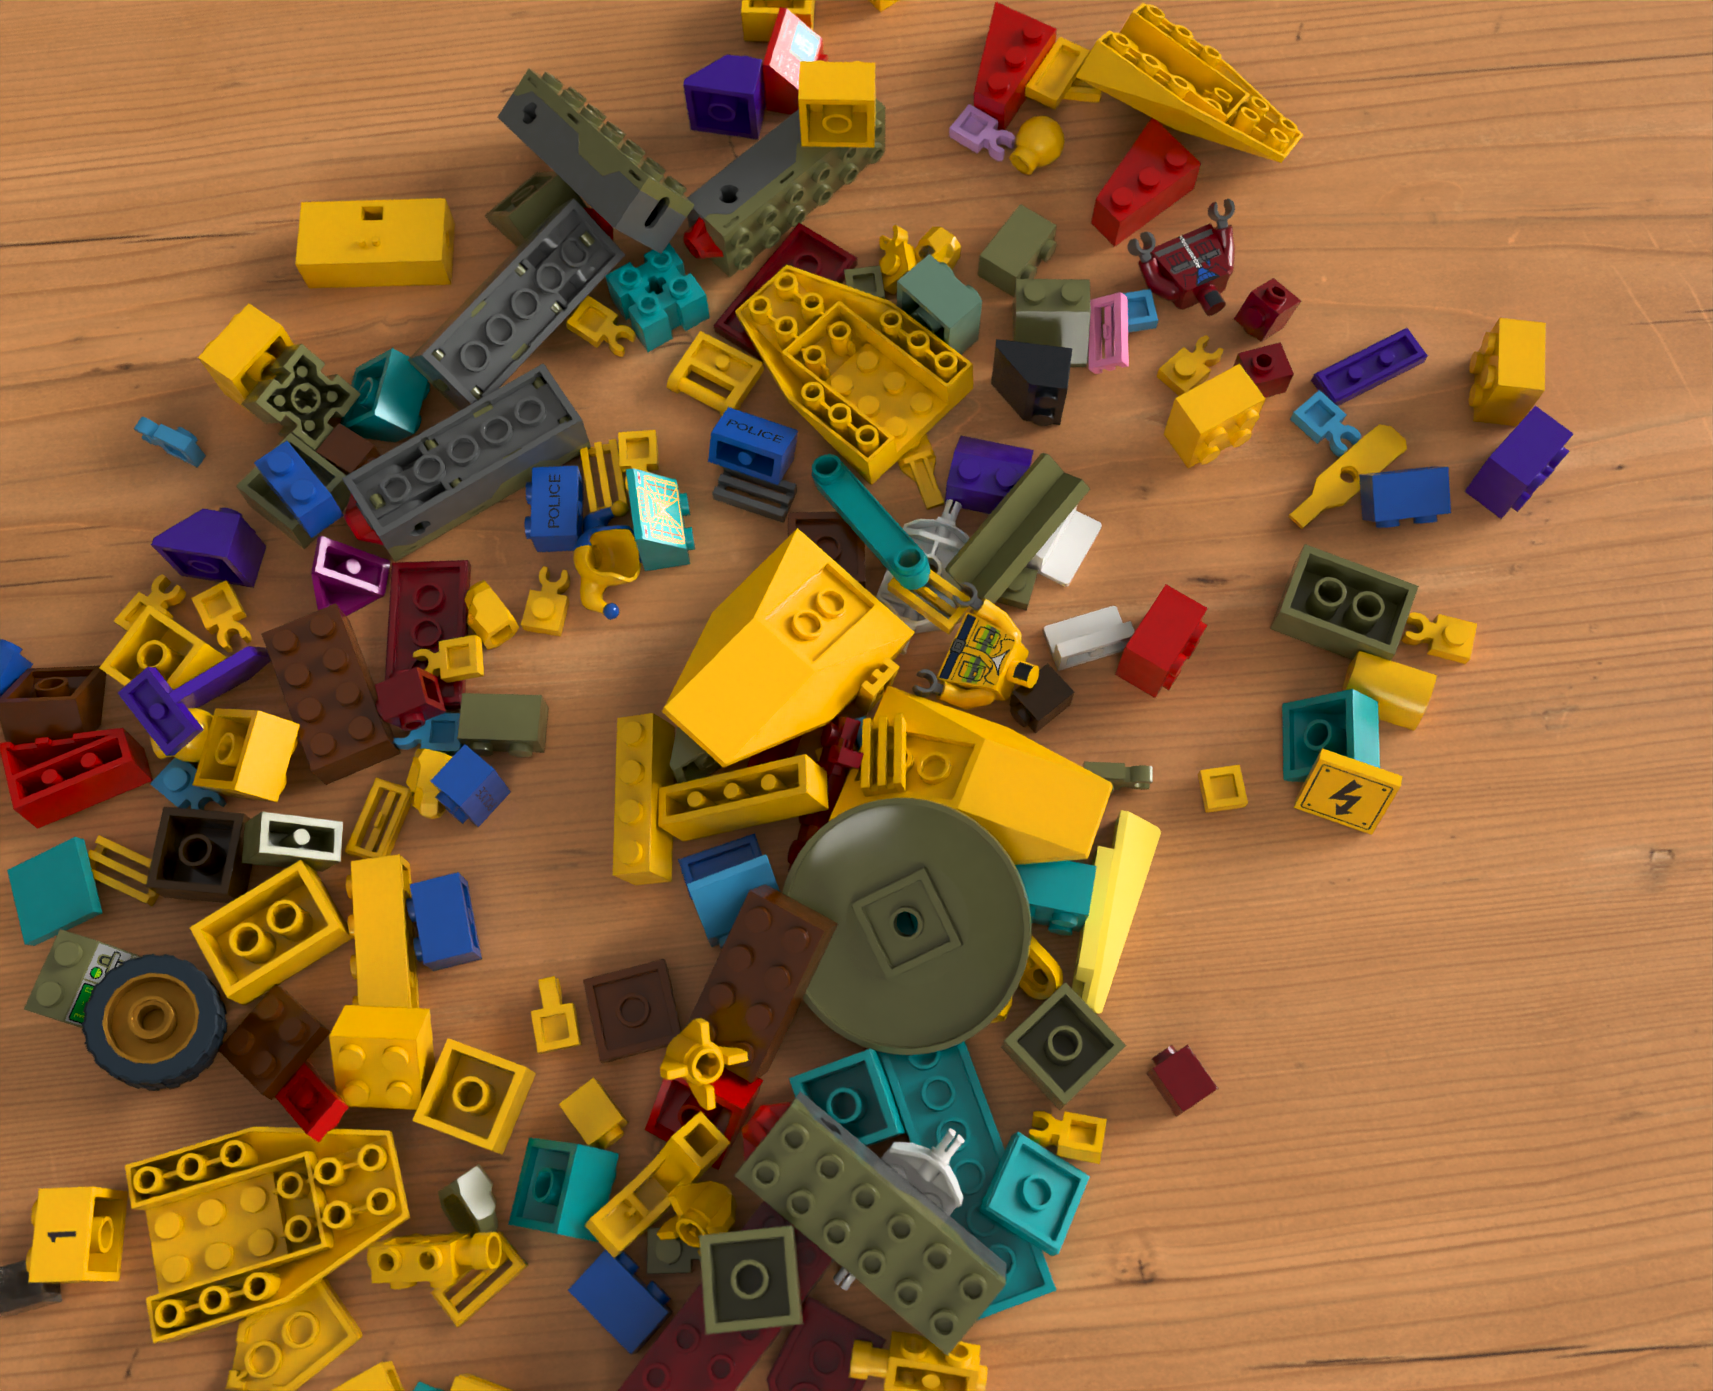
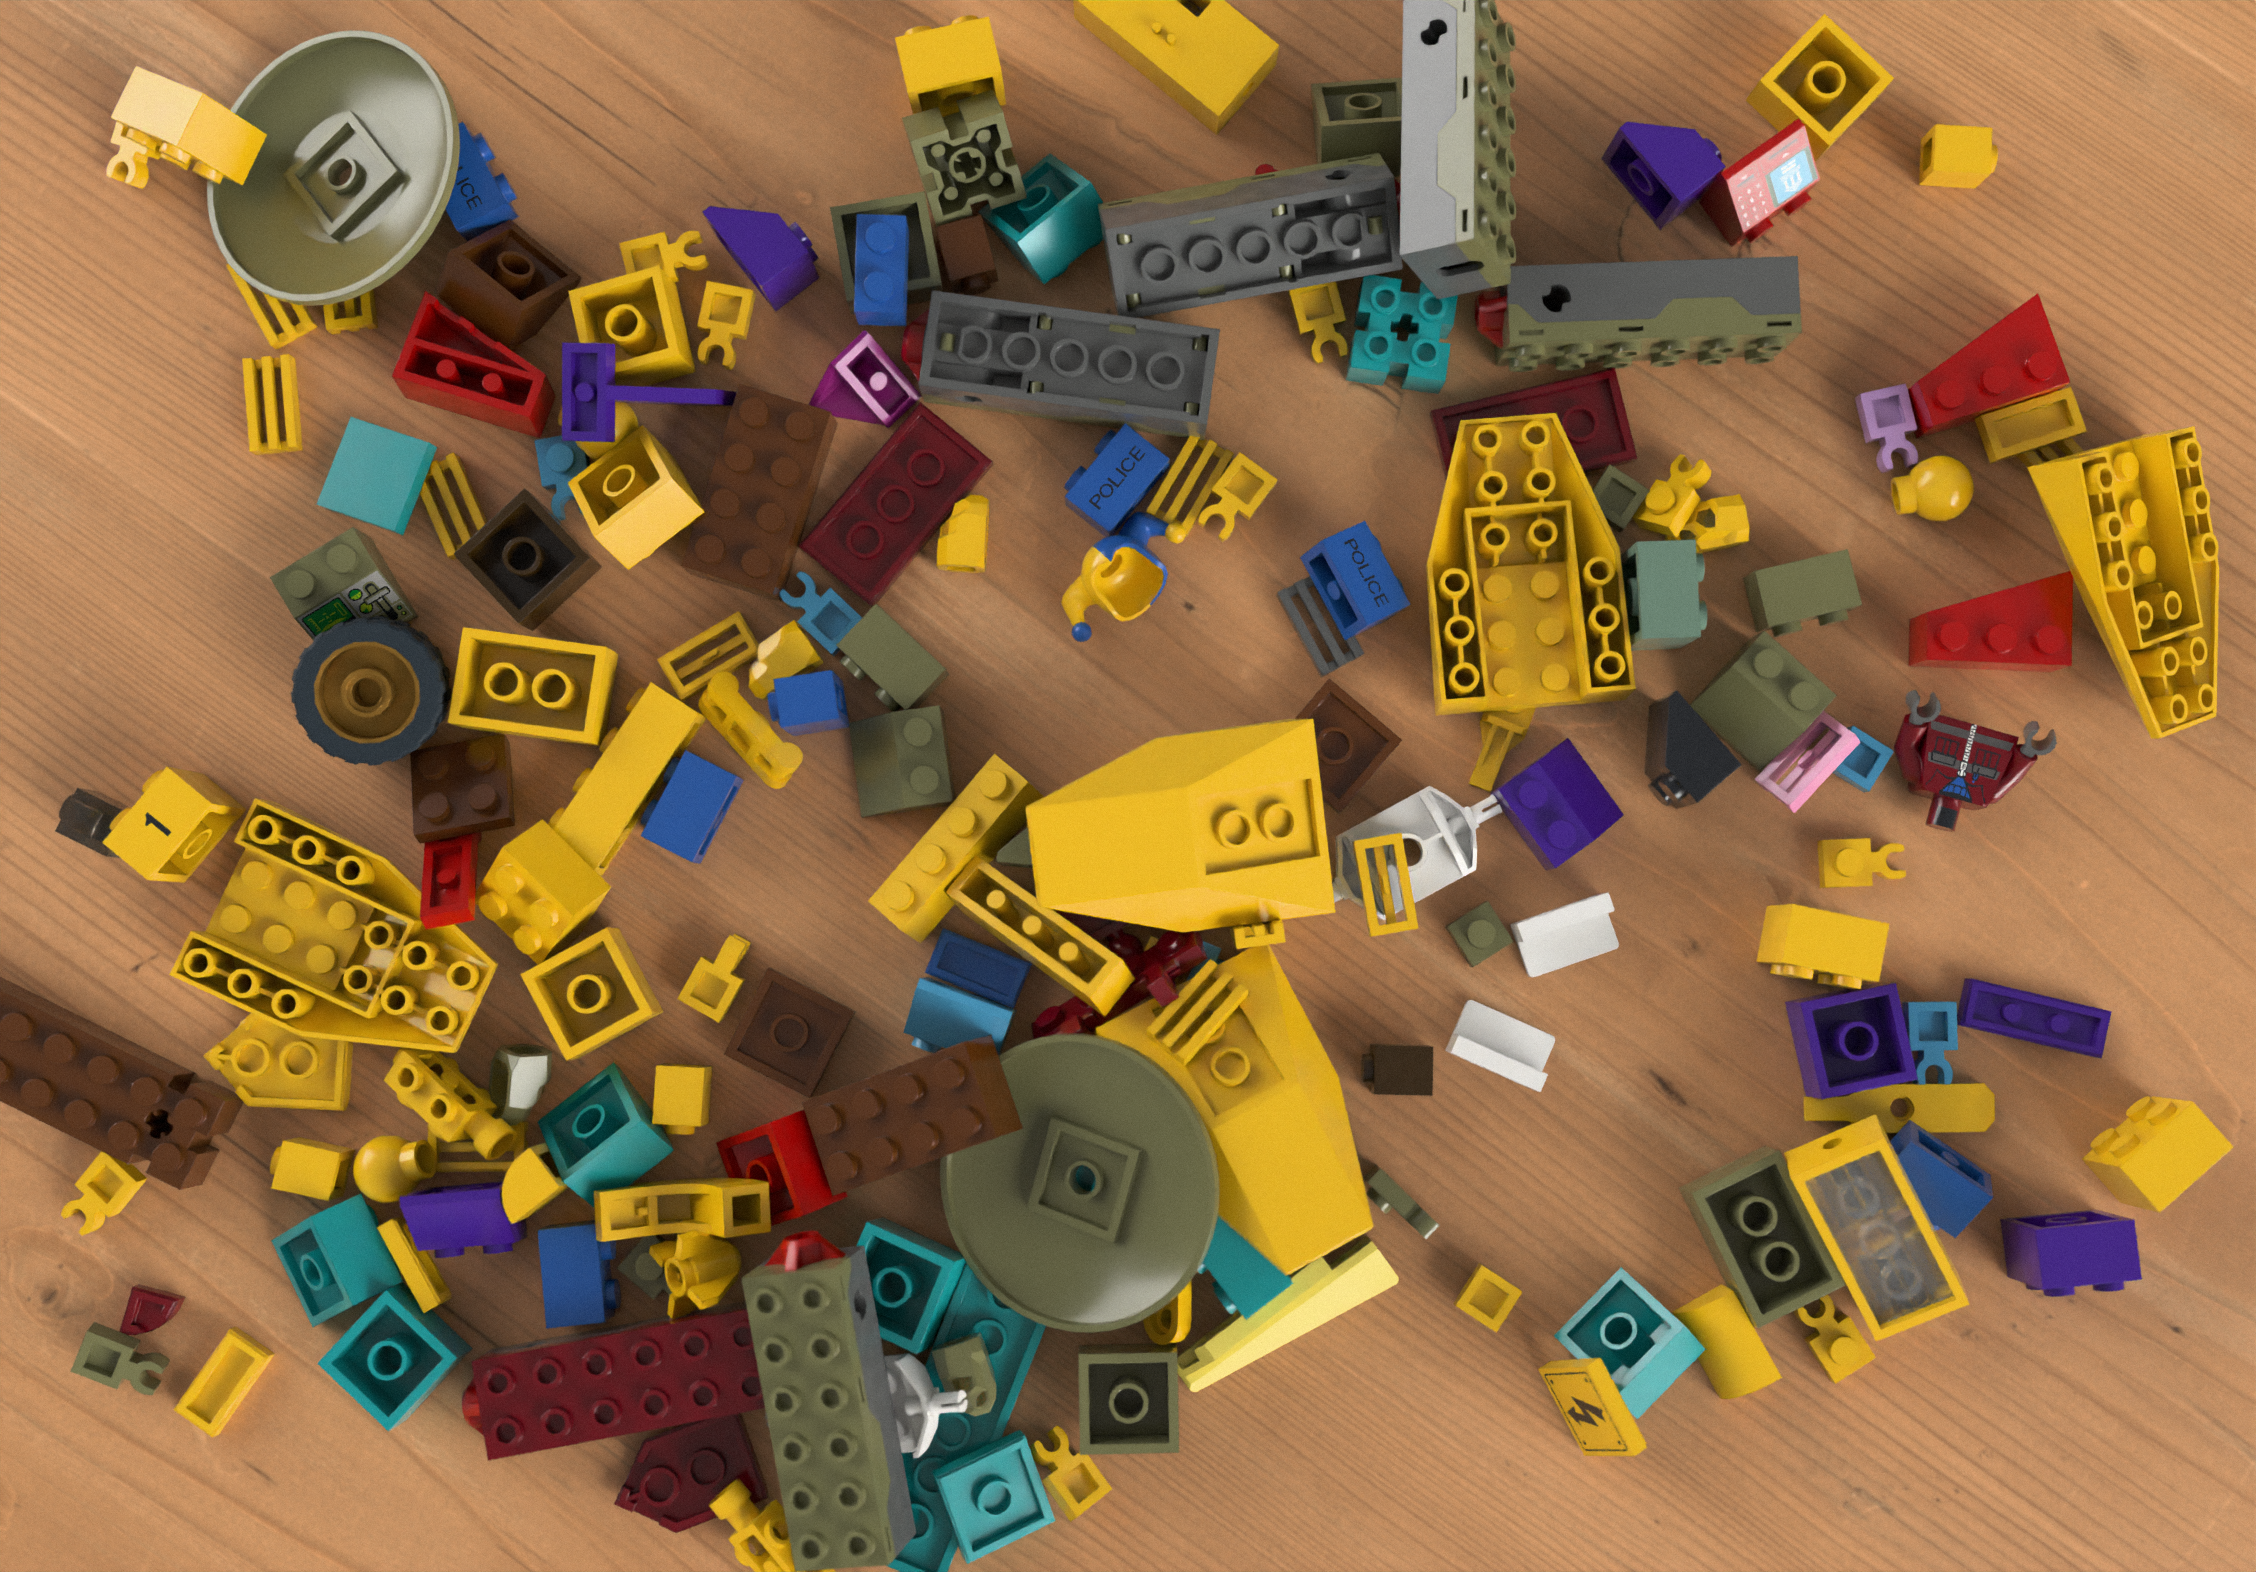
camera: 40 degrees right, 15 degrees up
(176, 443) = (817, 96): dark azure plate -> none
(285, 839) = (613, 620): olive brick -> none
(409, 698) = (822, 570): dark red brick -> none
(428, 1342) = (393, 1167): none -> yellow piece
(444, 842) = (748, 731): none -> yellow plate
(456, 659) = (897, 561): yellow plate -> none
(508, 1328) = (461, 1217): none -> dark purple slope
(539, 1257) = (531, 1183): none -> yellow brick
(547, 608) = (1026, 574): yellow plate -> none
(562, 778) = (902, 761): none -> olive slope
(659, 520) = (1200, 583): teal slope -> none
(698, 1060) = (797, 1148): yellow brick -> none
(720, 365) = (1400, 462): yellow plate -> none
(750, 1279) = (682, 1375): olive brick -> none
(837, 104) = (1745, 302): yellow brick -> none
(871, 522) = (1394, 761): teal piece -> none
(938, 1115) = (967, 1367): none -> olive rock
(982, 659) = (1377, 989): yellow torso -> none
(1017, 528) = (1523, 894): olive panel -> none
(1162, 642) = (1558, 1121): red brick -> none
(1180, 1078) = (1207, 1514): dark red brick -> none
(1267, 310) = (1987, 875): dark red brick -> none
(1267, 368) = (1918, 935): dark red brick -> none
(1282, 456) = (1851, 1040): none -> dark purple brick
(1404, 539) = (1875, 1228): none -> brick

